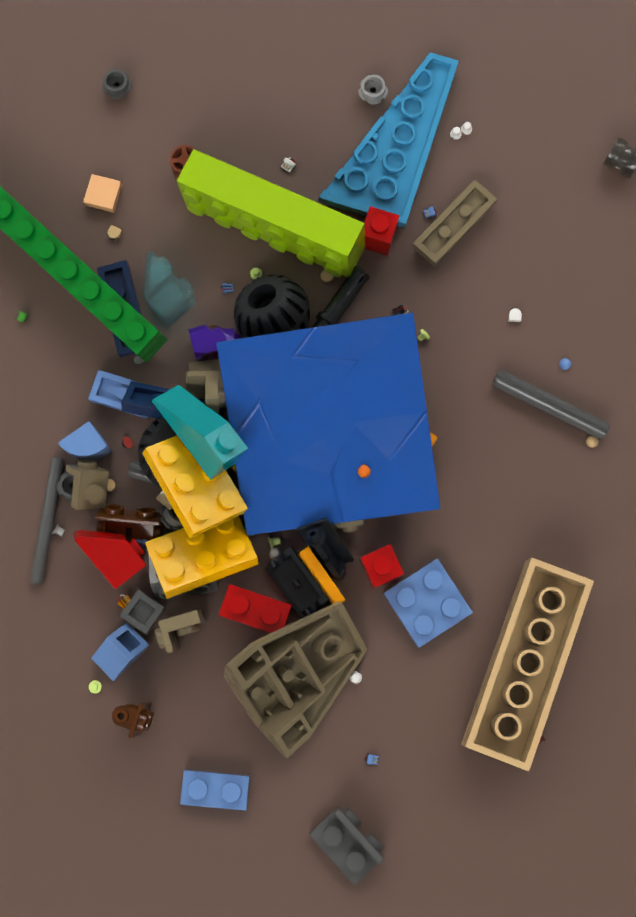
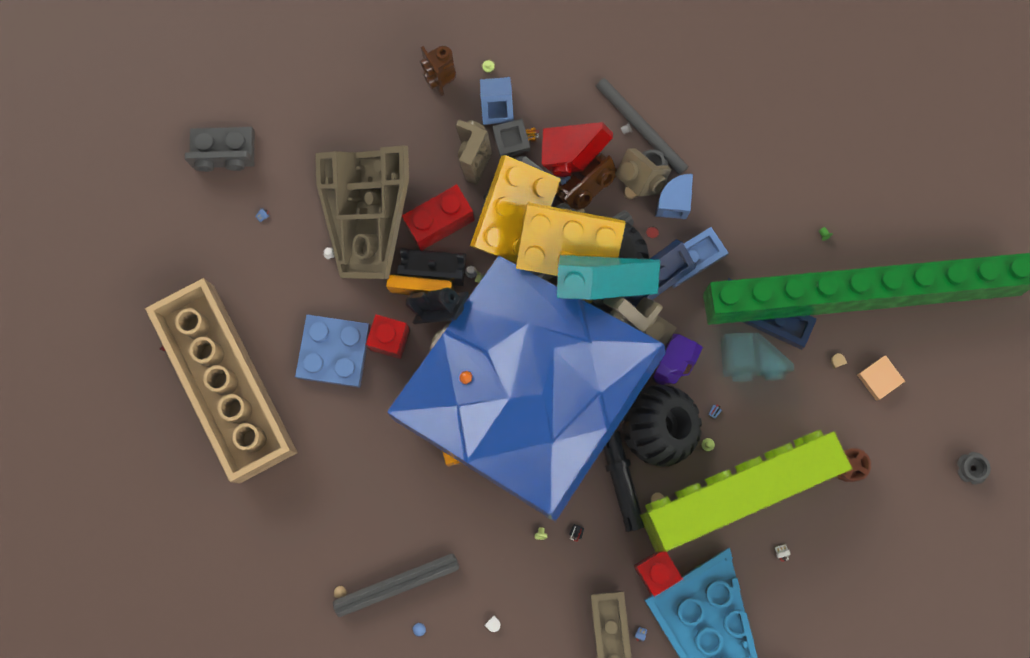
camera: 135 degrees right, 0 degrees up
(215, 790) = (341, 89): medium blue plate -> none

